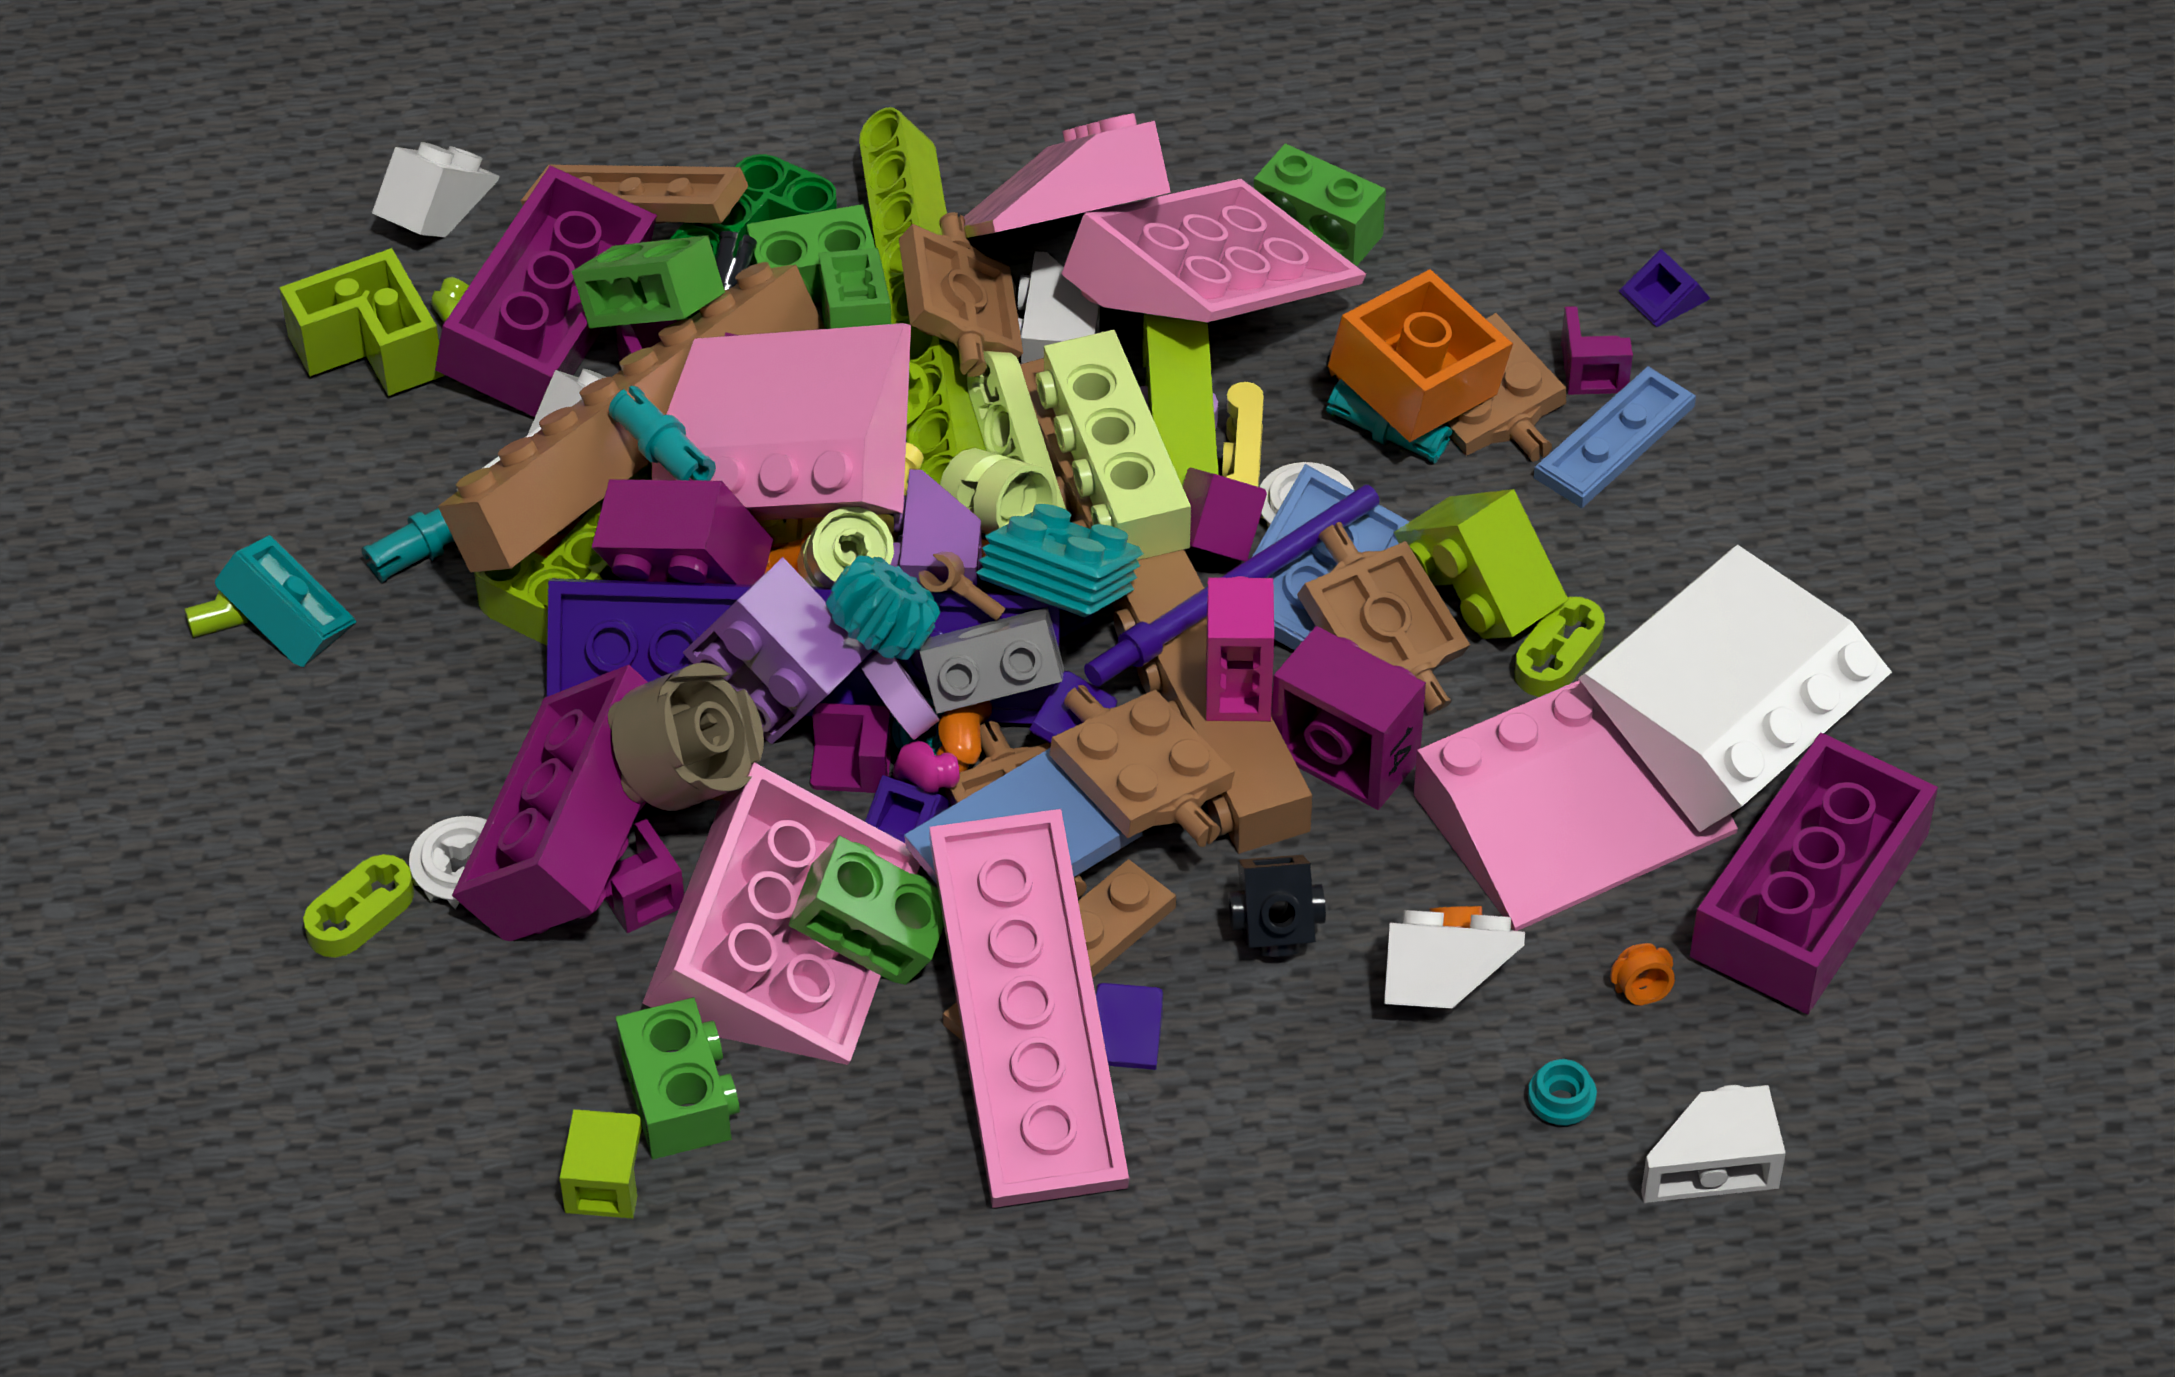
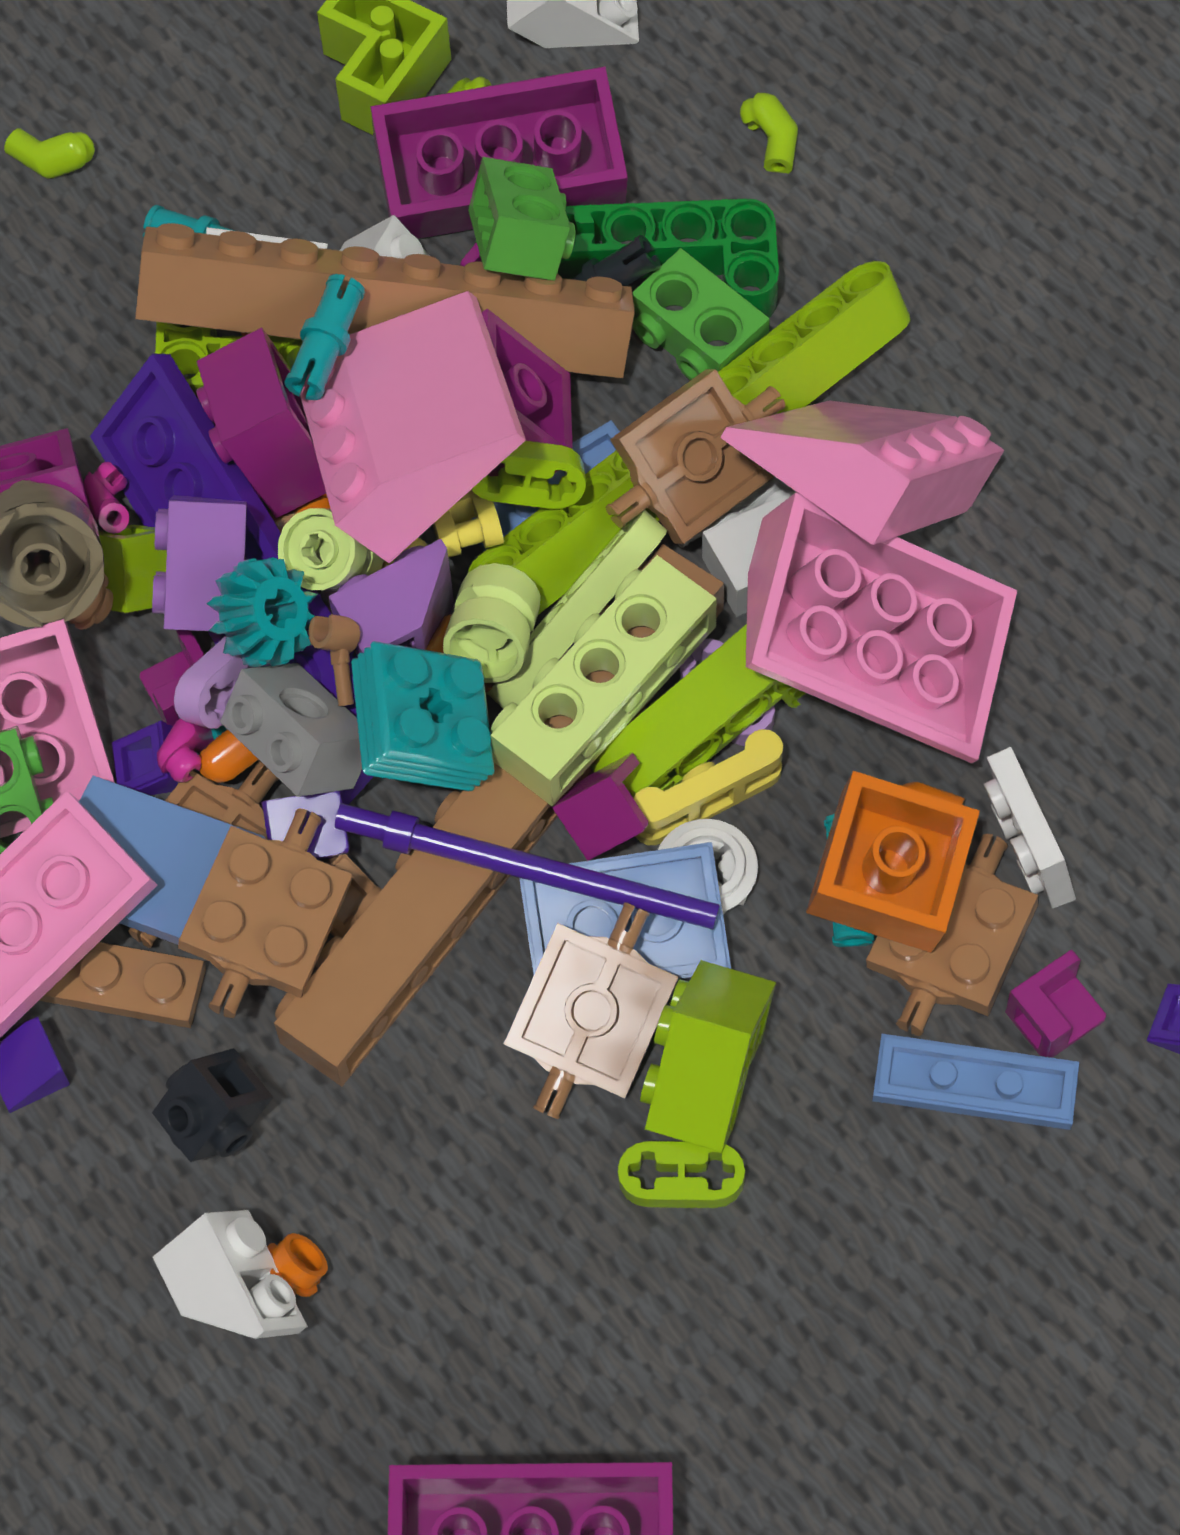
camera: 60 degrees right, 15 degrees up
(283, 600) = (68, 188): teal slope -> none
(670, 192) = (655, 149): medium nougat plate -> none
(674, 130) = (782, 131): none -> lime arm
(853, 289) = (635, 381): bright green brick -> none
(1239, 649) = (412, 913): dark pink brick -> none
(1325, 200) = (1057, 673): bright green brick -> none
(1349, 716) = (440, 1043): magenta brick -> none
(1469, 265) = (1020, 815): none -> white plate
(1552, 806) = (504, 1285): bright pink slope -> none
(1564, 1076) = (155, 1443): teal plate -> none
(1641, 967) = (342, 1454): orange plate -> none
(1732, 683) = (687, 1351): white slope -> none

